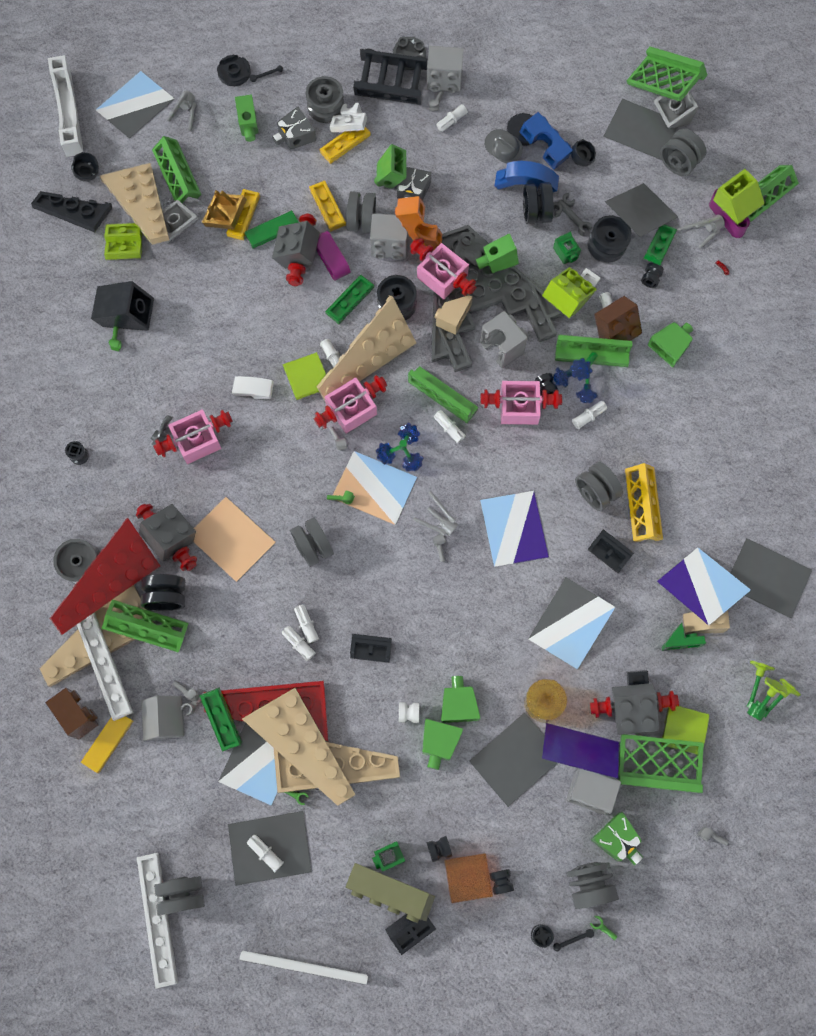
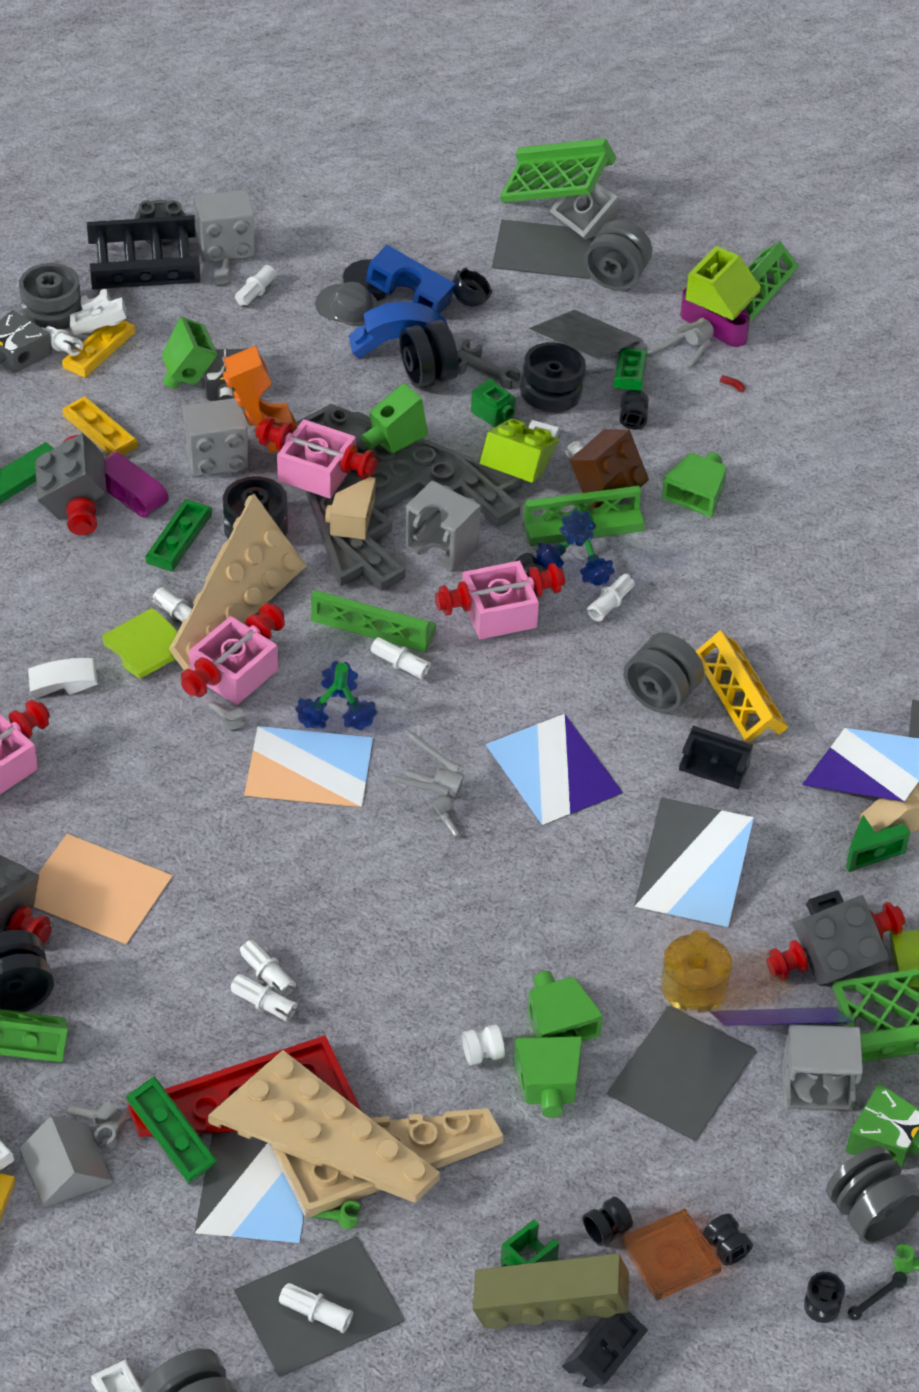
camera: 20 degrees left, 25 degrees down
(309, 543) = (237, 846): dark grey wheel -> none
(322, 134) = (62, 341): none -> white axle
(347, 498) = (271, 787): bright green hand -> none
(360, 212) = (156, 416): dark grey wheel -> none
(370, 648) = (386, 973): black hinge -> none

